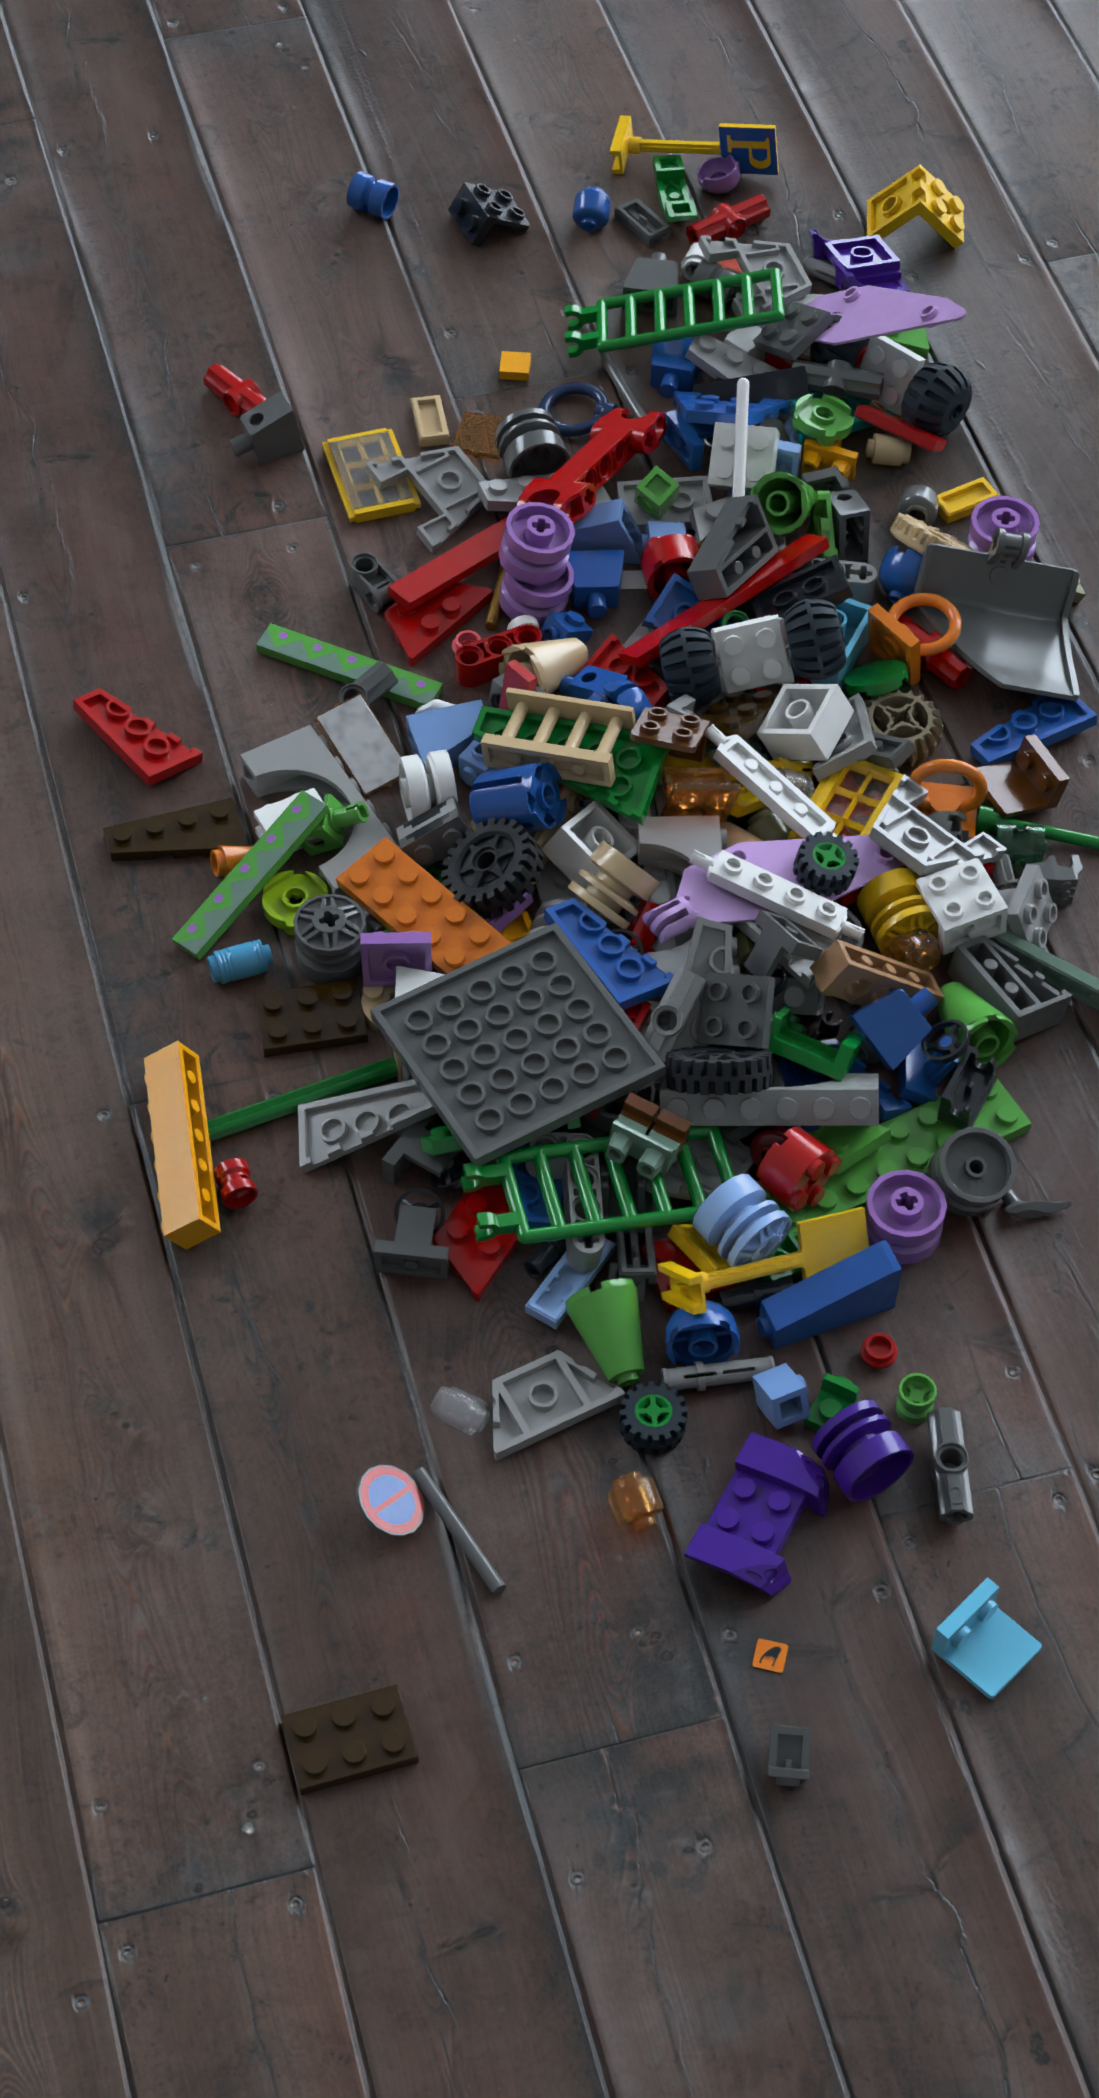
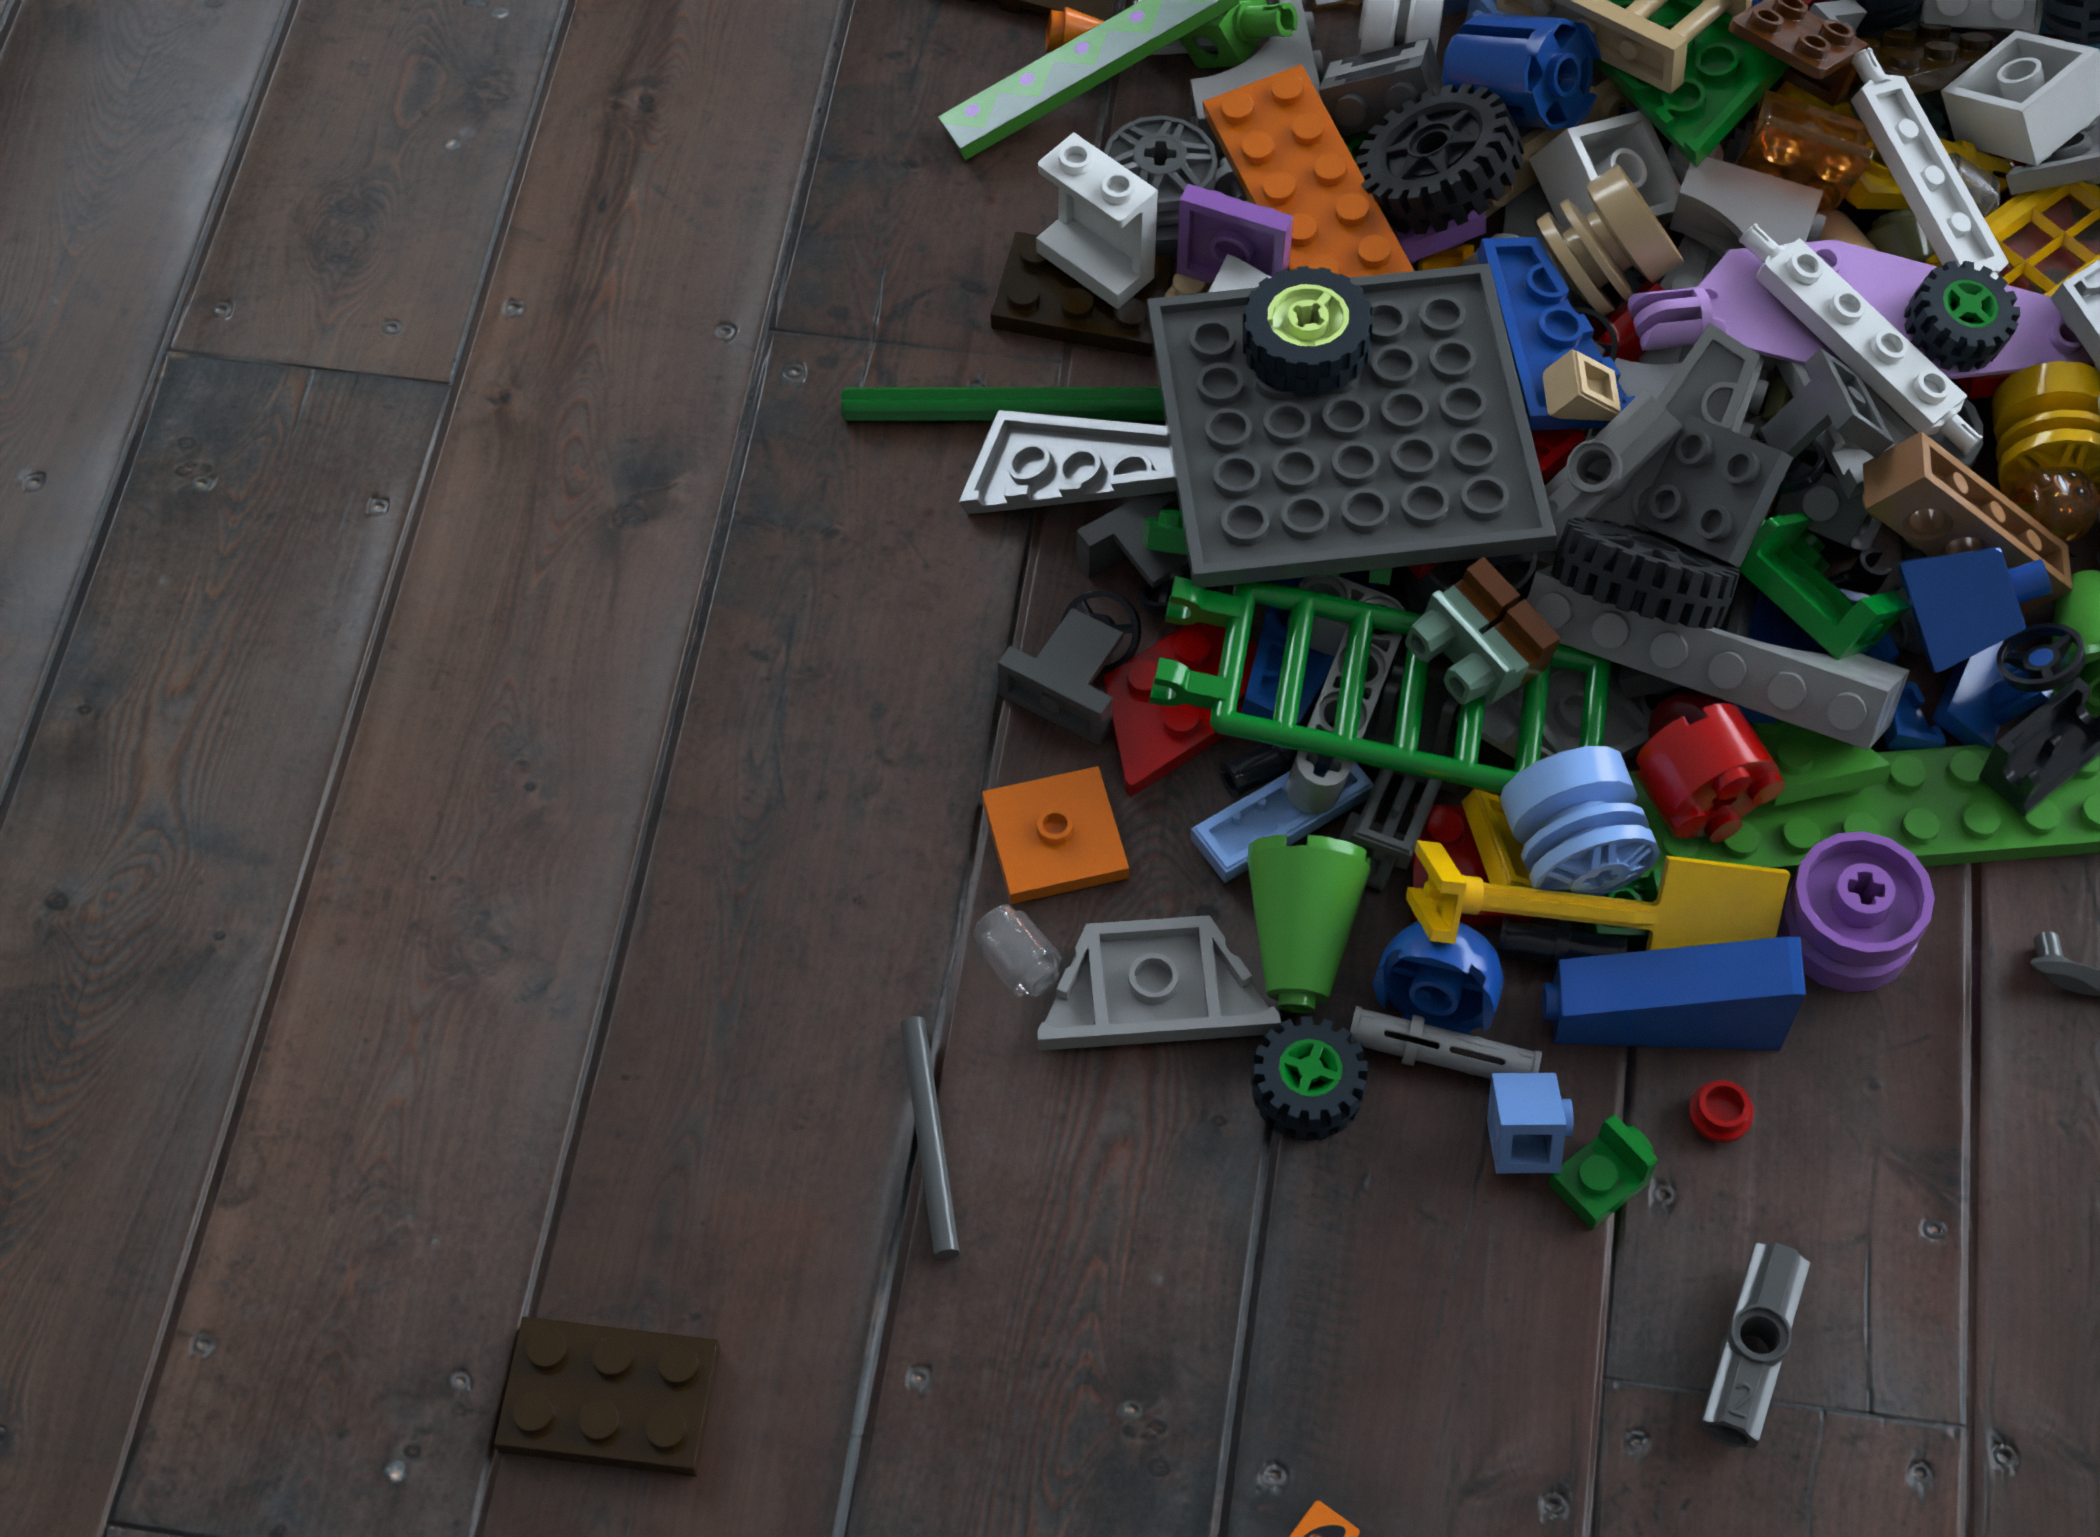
camera: 25 degrees right, 5 degrees up
(181, 1146) = (800, 411): light orange brick -> none
(236, 1186) = (855, 481): red wheel -> none
(239, 962) = (1010, 180): dark azure head -> none
(284, 886) = (1133, 96): lime plate -> none
(312, 972) = (1103, 221): none -> white panel
(390, 1501) = (843, 1050): piece -> none
(447, 1338) = (1055, 835): none -> orange plate
(492, 998) = (1307, 330): none -> black wheel
(635, 1501) = (1217, 1199): clear orange head -> none
(640, 978) = (1581, 389): none -> tan slope
(760, 1513) = (1406, 1300): dark purple piece -> none
(862, 1450) = (1616, 1264): dark purple wheel -> none
(915, 1398) = (1755, 1199): bright green wheel -> none
(973, 1170) = (2033, 886): dark grey wheel -> none

